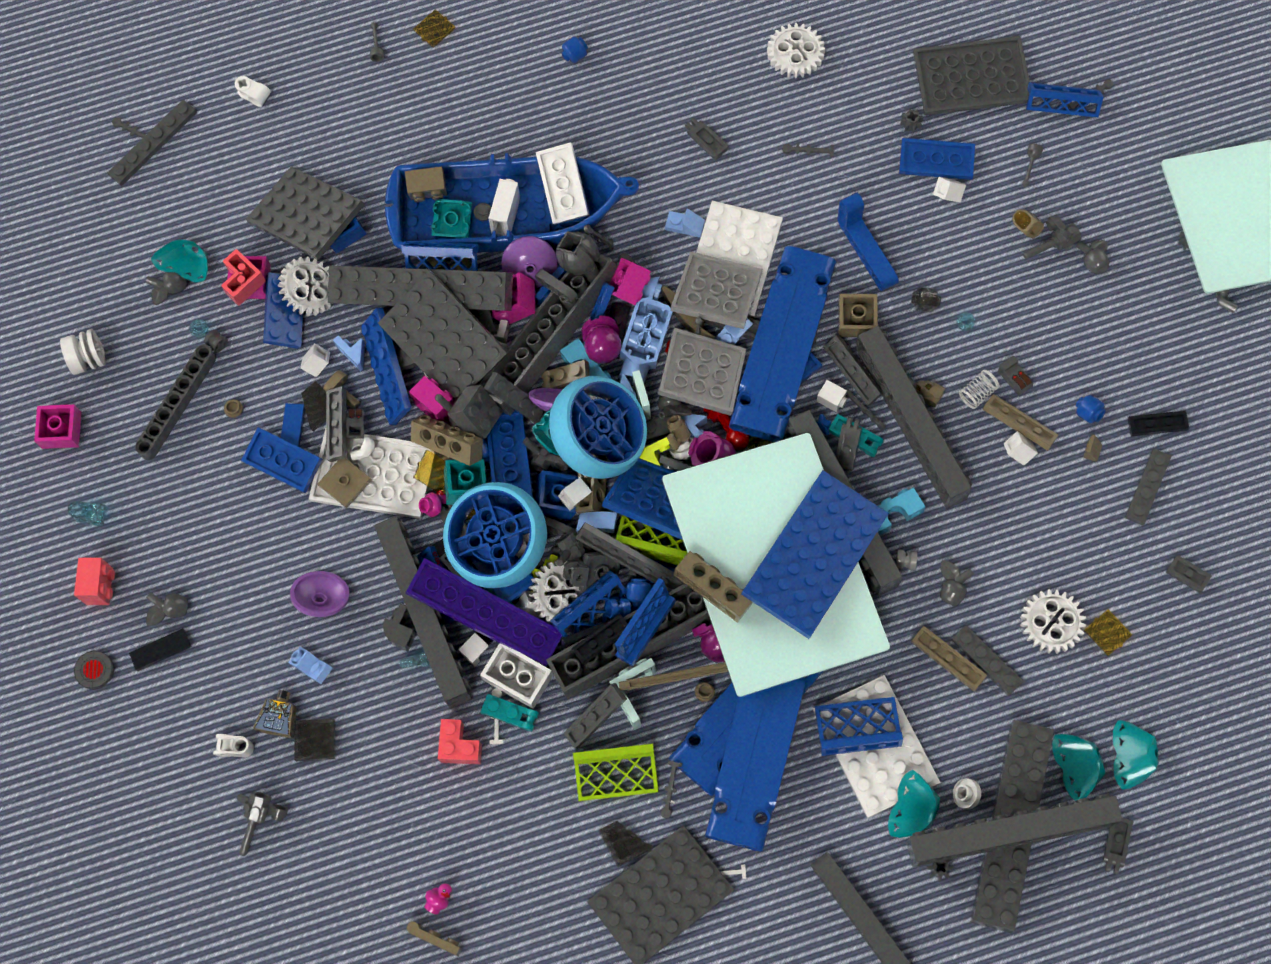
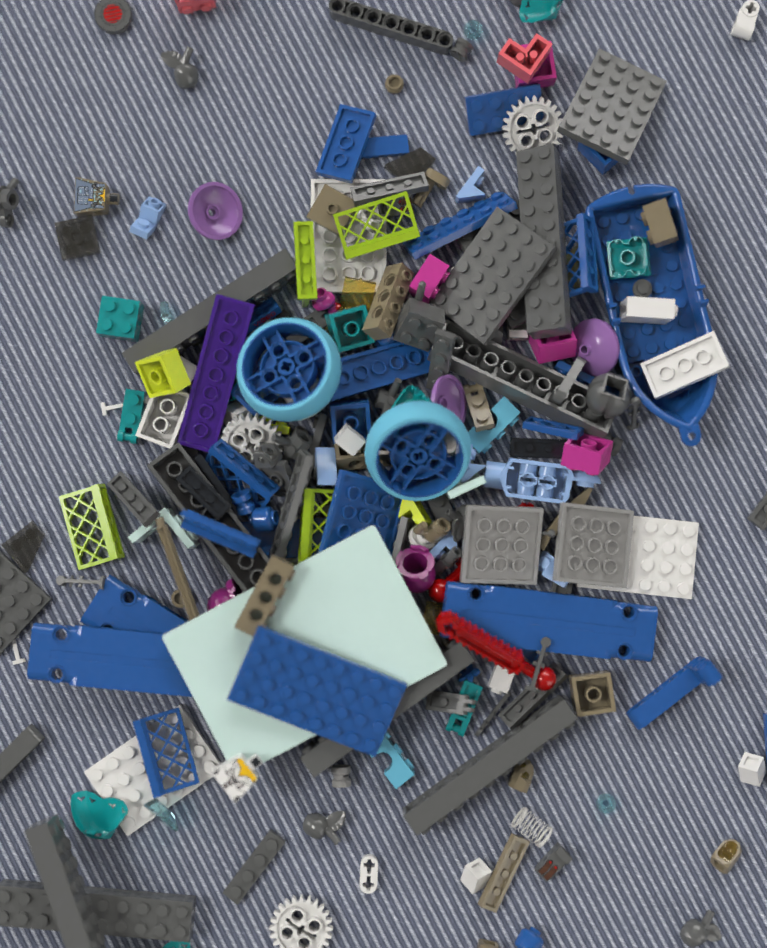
camera: 75 degrees right, 15 degrees up
(160, 649) = (142, 72): black tile -> none
(229, 746) = (60, 159): white piece -> none
(315, 360) = (457, 153): white panel -> none
(378, 508) = (305, 262): none -> lime fence
(387, 438) = (382, 241): none -> lime fence
(395, 630) = (191, 291): dark grey brick -> none
(408, 707) = (120, 318): none -> teal brick
(453, 747) = (88, 369): coral brick -> none
(474, 661) = (163, 373): none -> neon yellow slope
(601, 339) = (518, 437): magenta tile -> none
(686, 223) = (668, 499): light blue slope -> none
(707, 422) = (447, 560): none -> dark grey pin
(801, 389) = (493, 649): none -> red gear
(802, 345) = (545, 642): none -> dark grey piece
(887, 642) = (237, 774): none -> torso
(921, 739) = (162, 813): none -> clear light blue slope
(925, 299) = (622, 760): clear smoke head -> none
(949, 658) = (248, 829): dark tan plate -> none
(967, 793) = (118, 863): white plate -> none
(1008, 545) = (364, 873): none -> white beam
(1062, 237) = (714, 895): dark grey piece -> none

